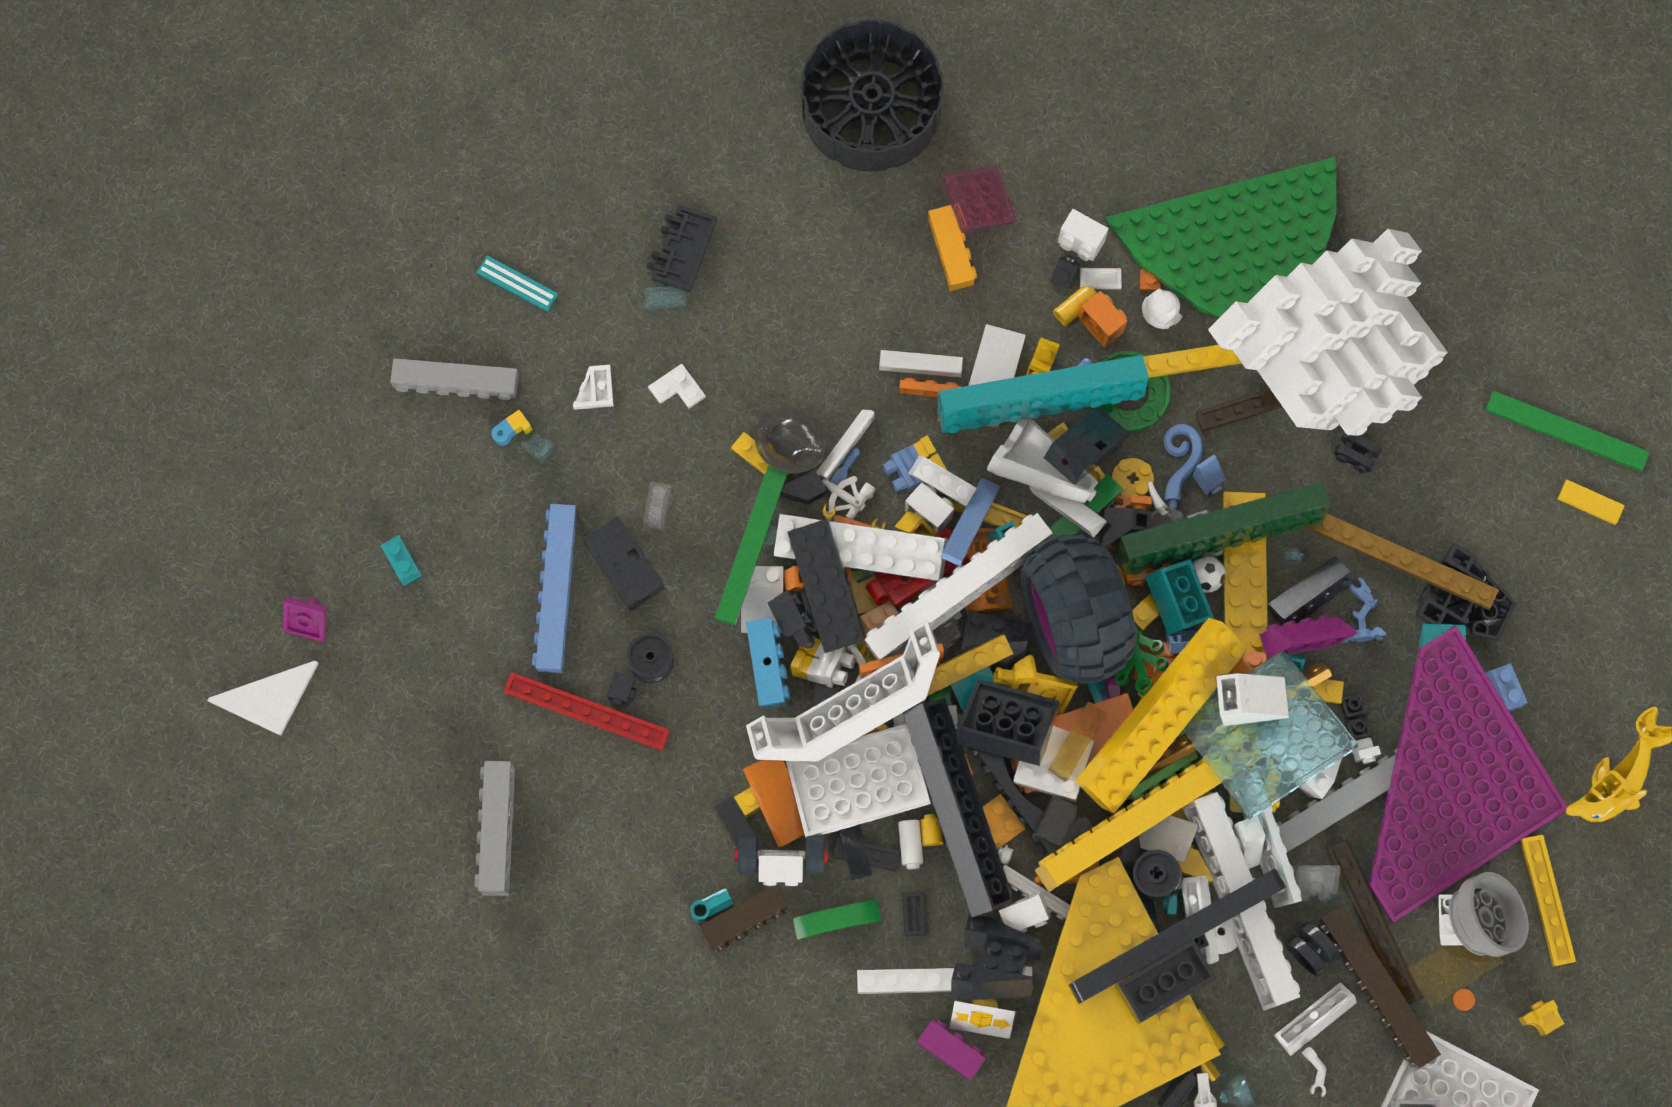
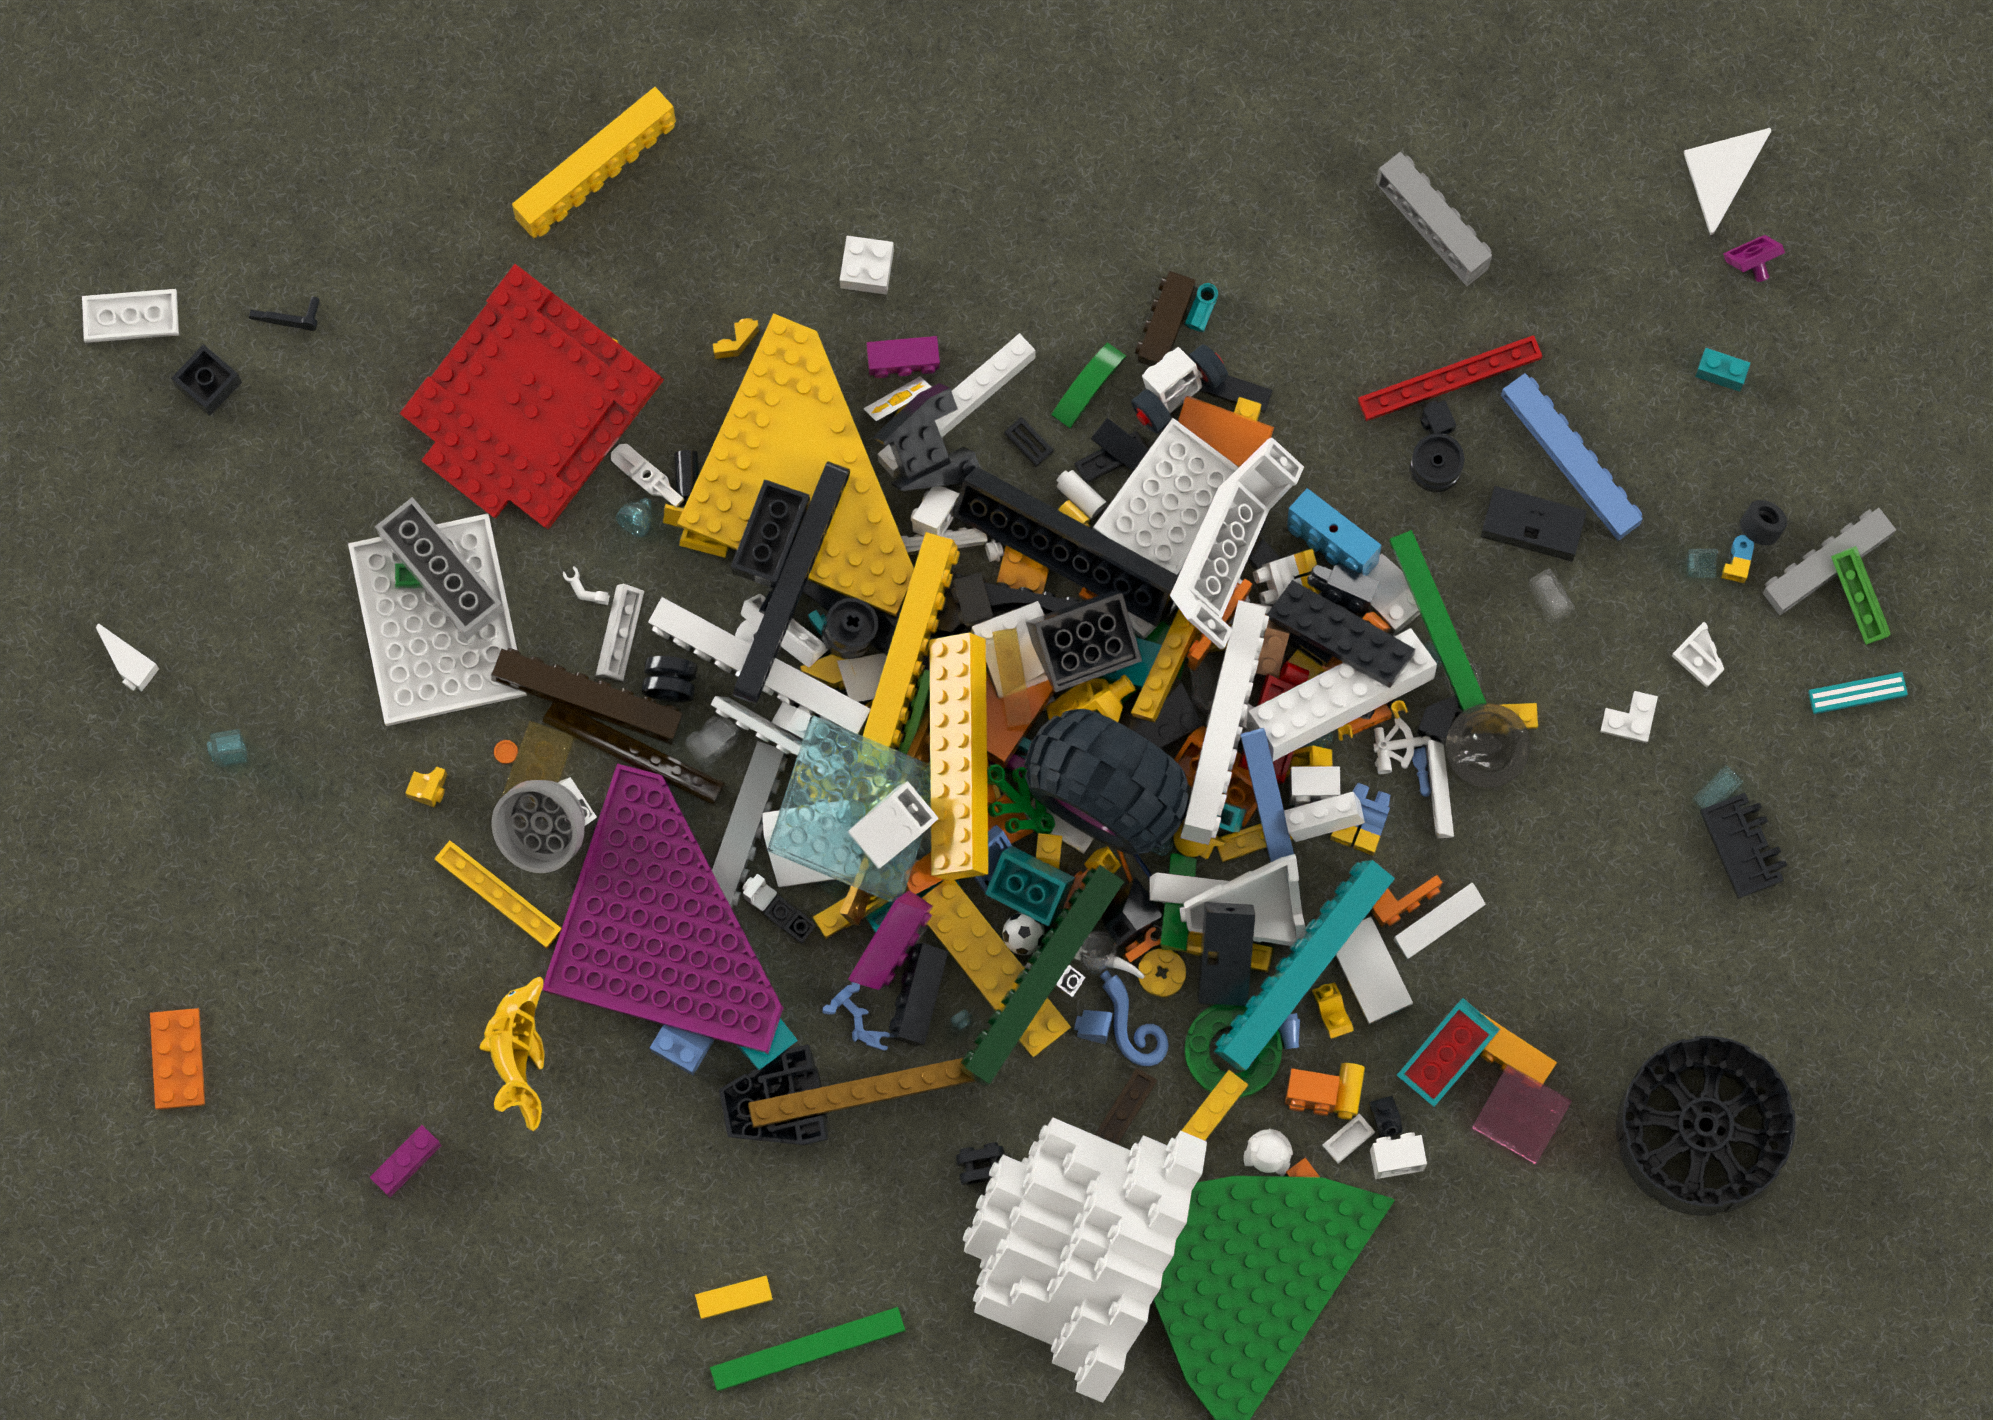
camera: 140 degrees right, 0 degrees up
(456, 338) = (1861, 595): none -> bright green slope
(482, 440) = (1763, 522): none -> black tyre
(994, 269) = (1448, 1052): none -> red brick

